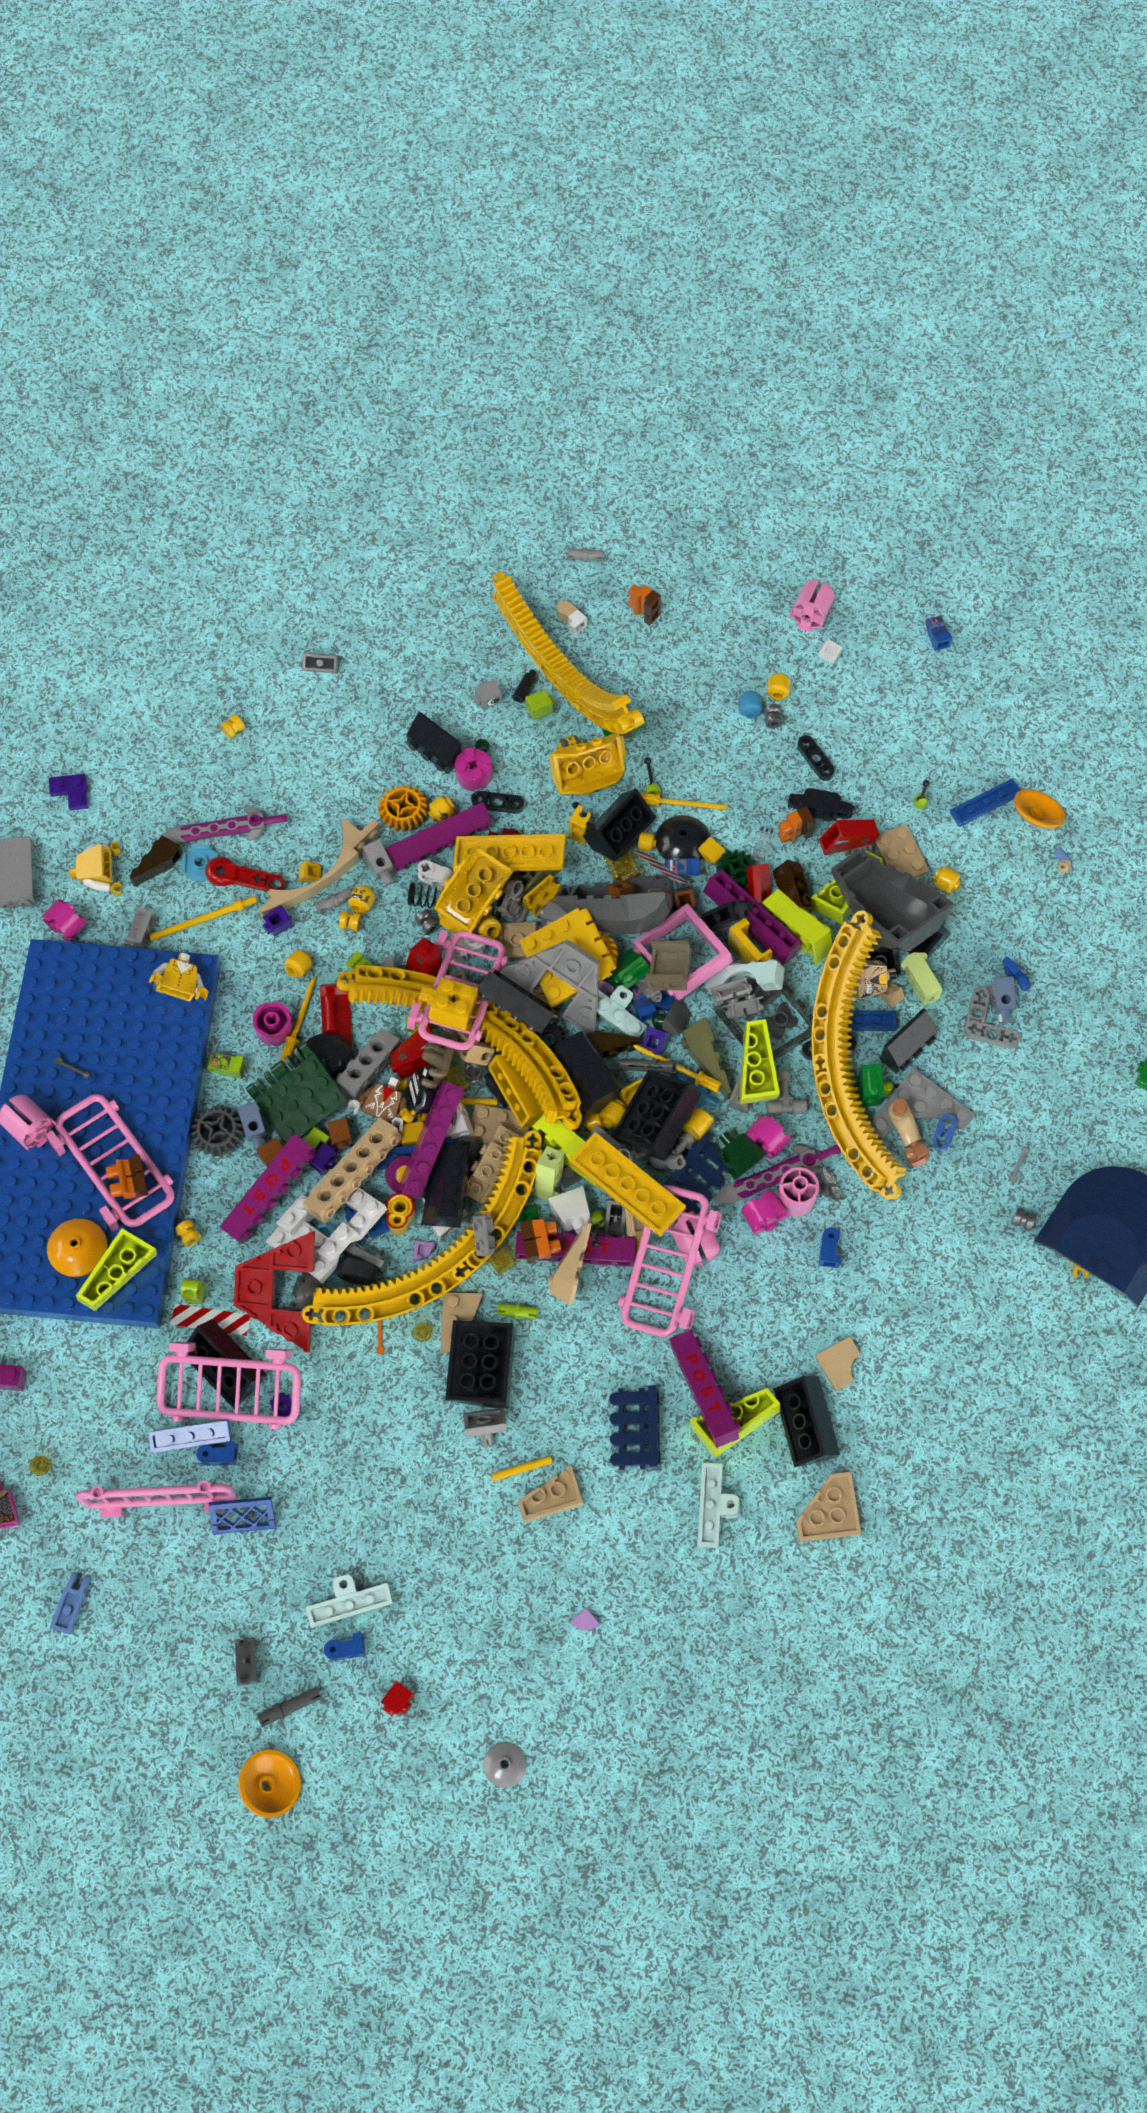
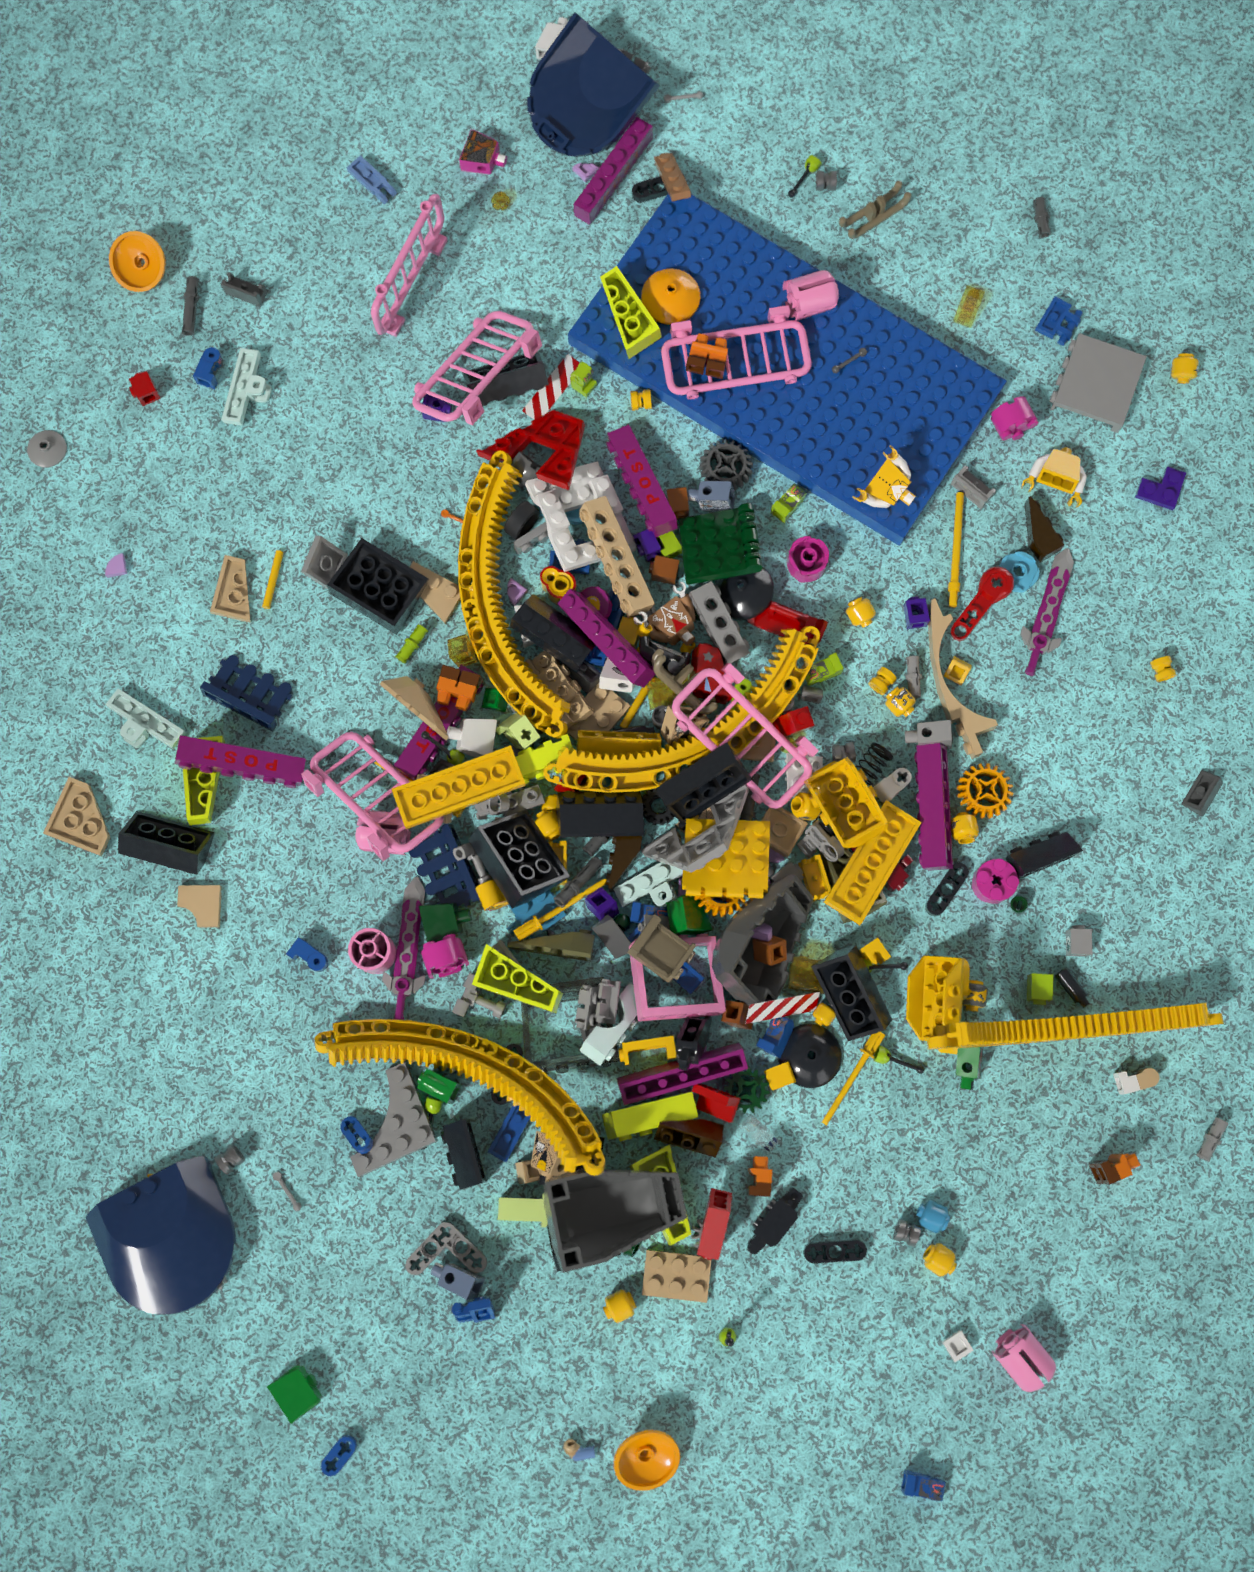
camera: 120 degrees right, 10 degrees up
(190, 1436) = (454, 323): plate -> none
(218, 1455) = (425, 340): blue leg -> none
(230, 1505) = (362, 333): blue window -> none
(291, 1041) = (781, 569): yellow piece -> none
(422, 1327) = (439, 559): clear yellow plate -> none
(450, 1003) = (737, 711): yellow hinge -> none
(483, 1243) = (495, 639): light grey hinge -> none
(764, 1212) = (371, 909): dark pink brick -> none
(780, 1021) = (559, 1039): dark grey animal -> none
(829, 1186) = (364, 989): dark grey animal -> none
(906, 1127) = (372, 1096): piece -> none
(984, 802) = (688, 1407): blue plate -> none

